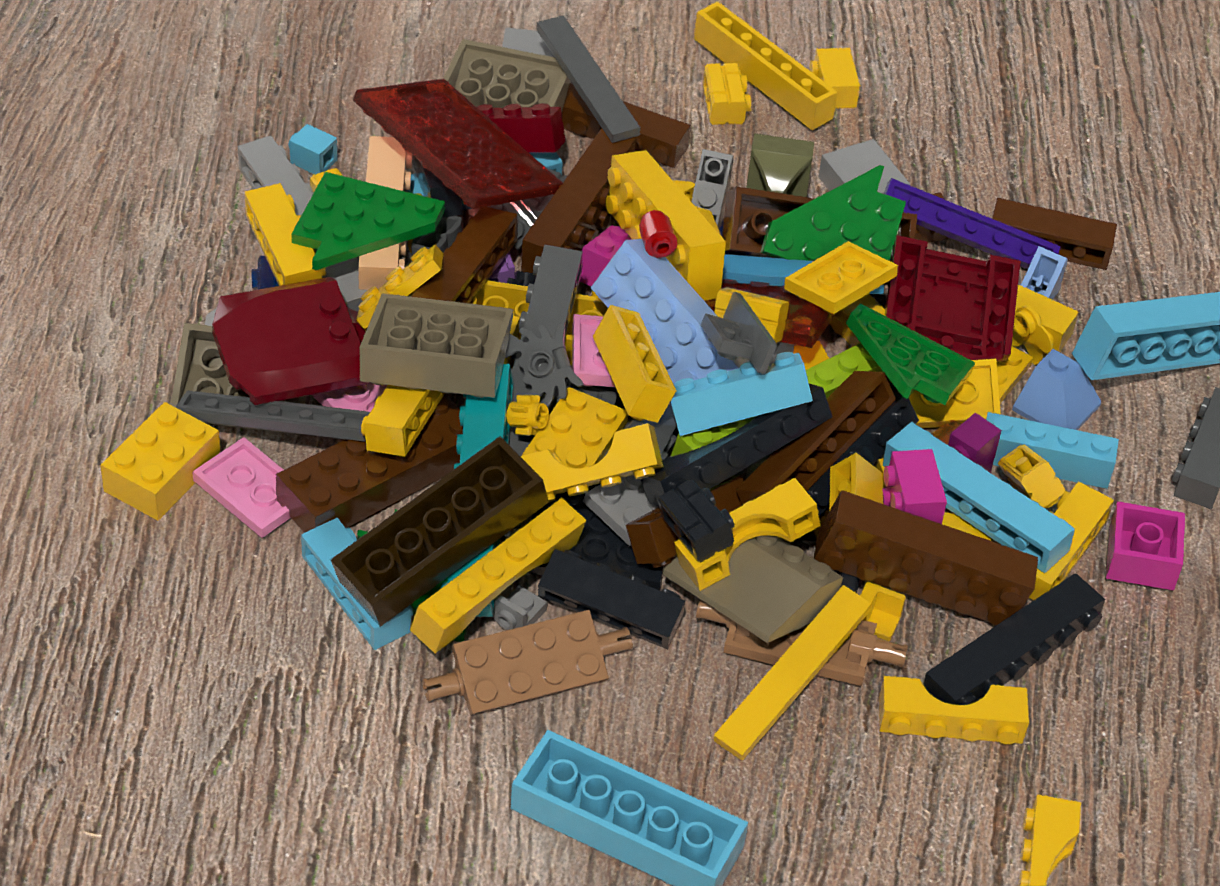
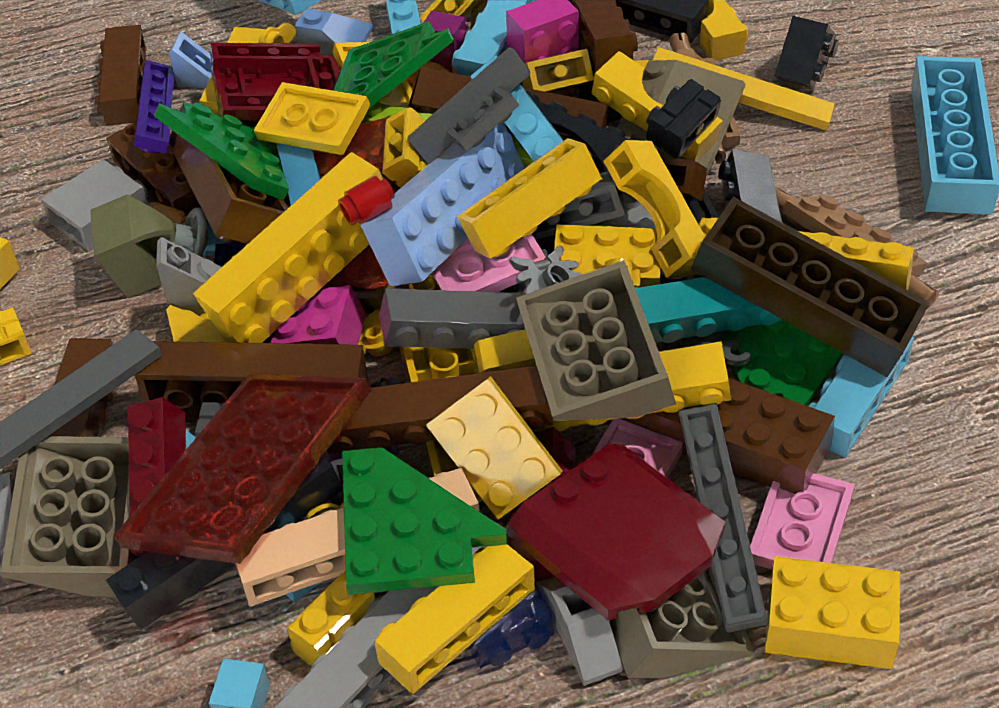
camera: 105 degrees left, 0 degrees up
(830, 749) = (804, 51): none -> black brick

